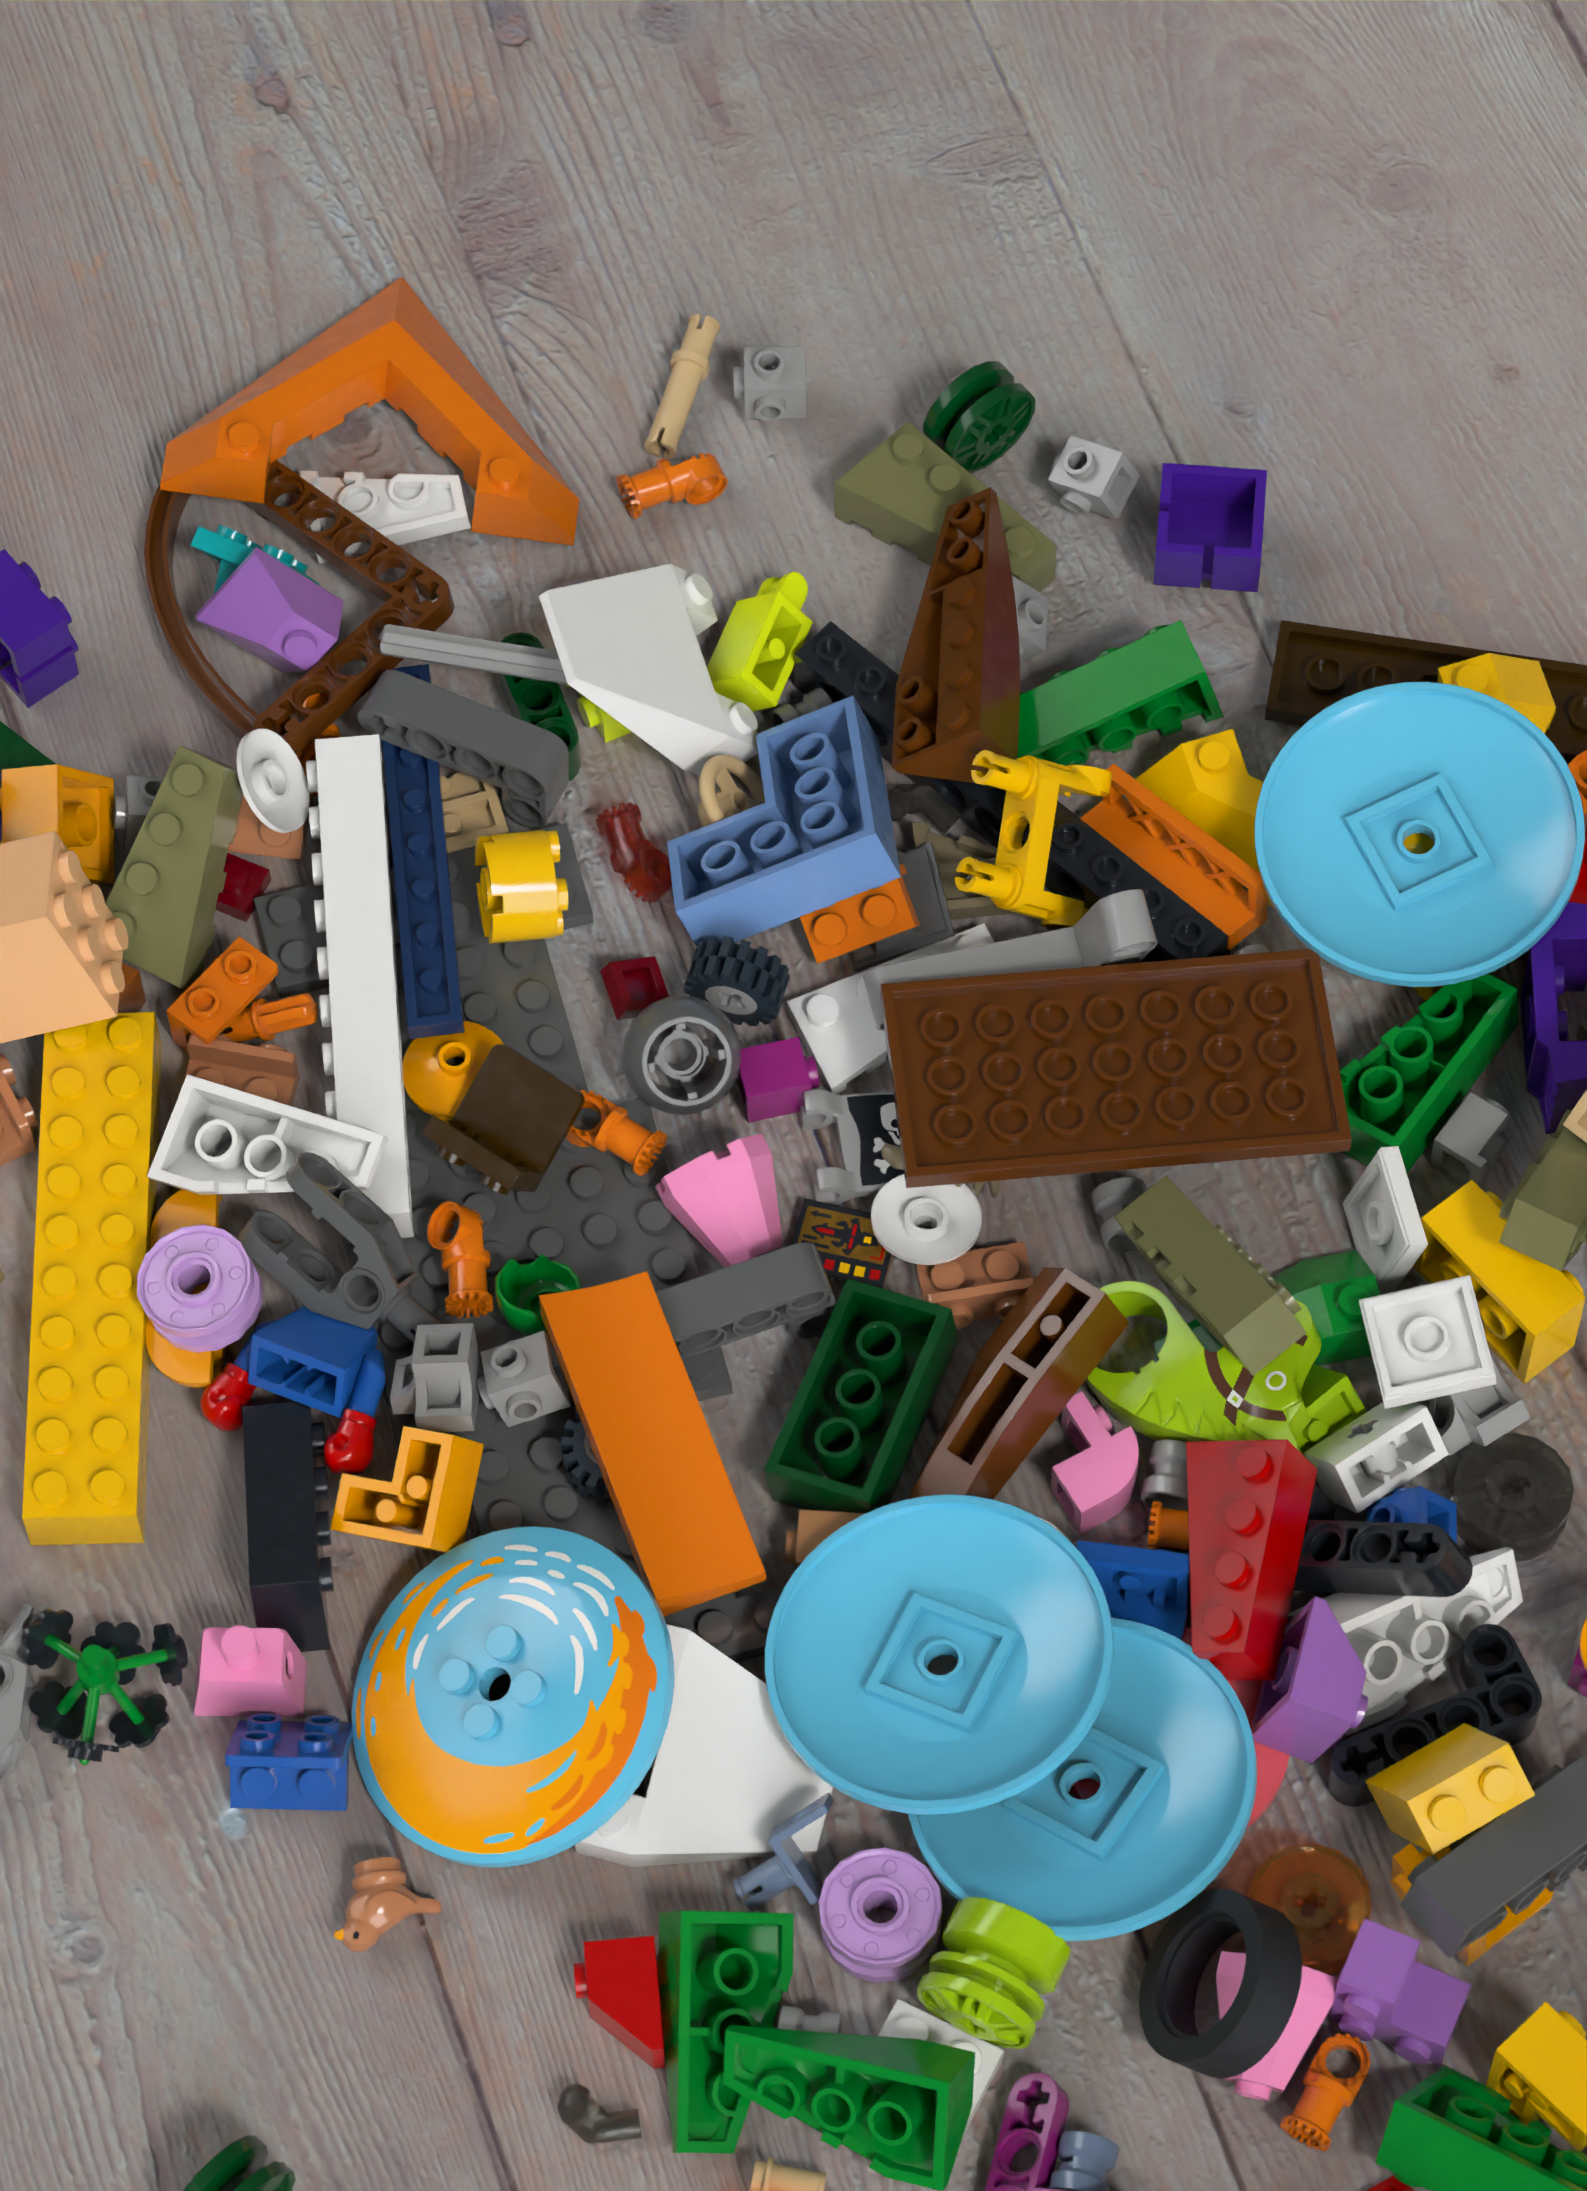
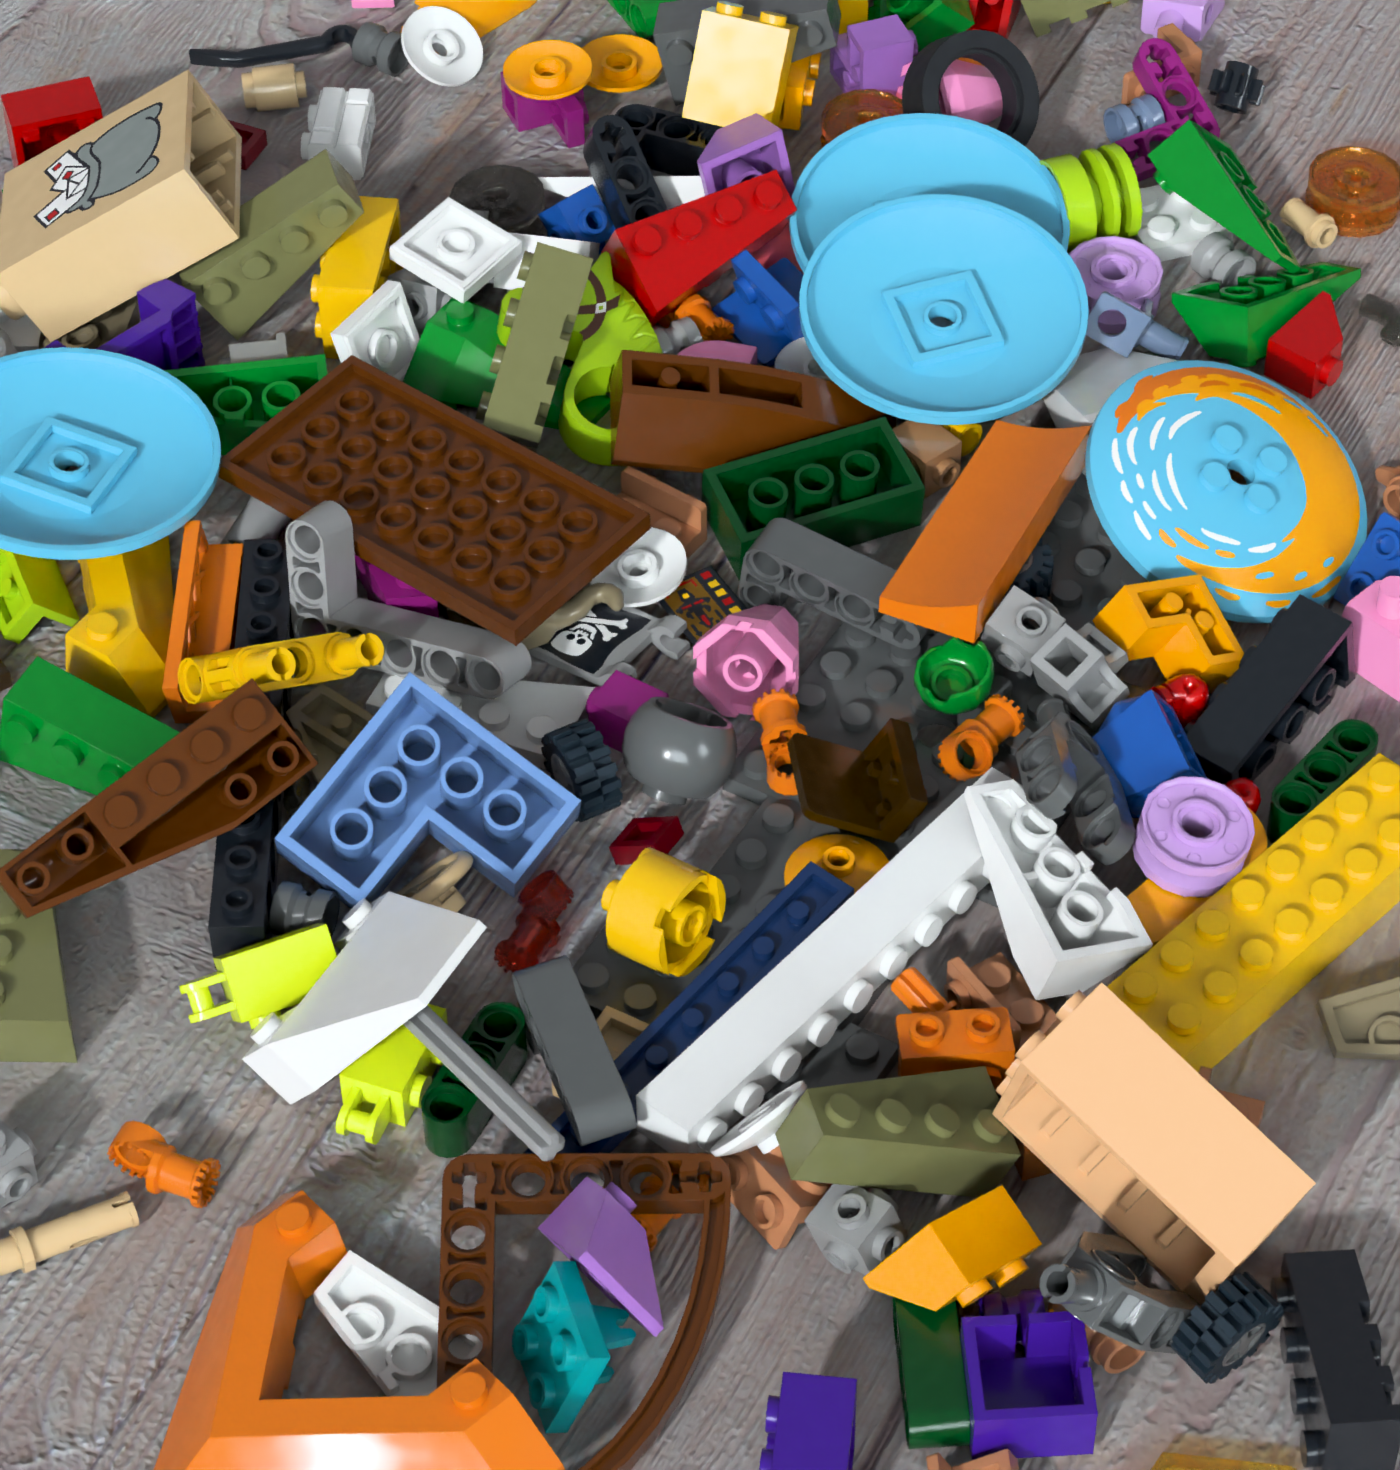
camera: 135 degrees left, 15 degrees down
(171, 1463) = (1320, 773): none -> dark green beam

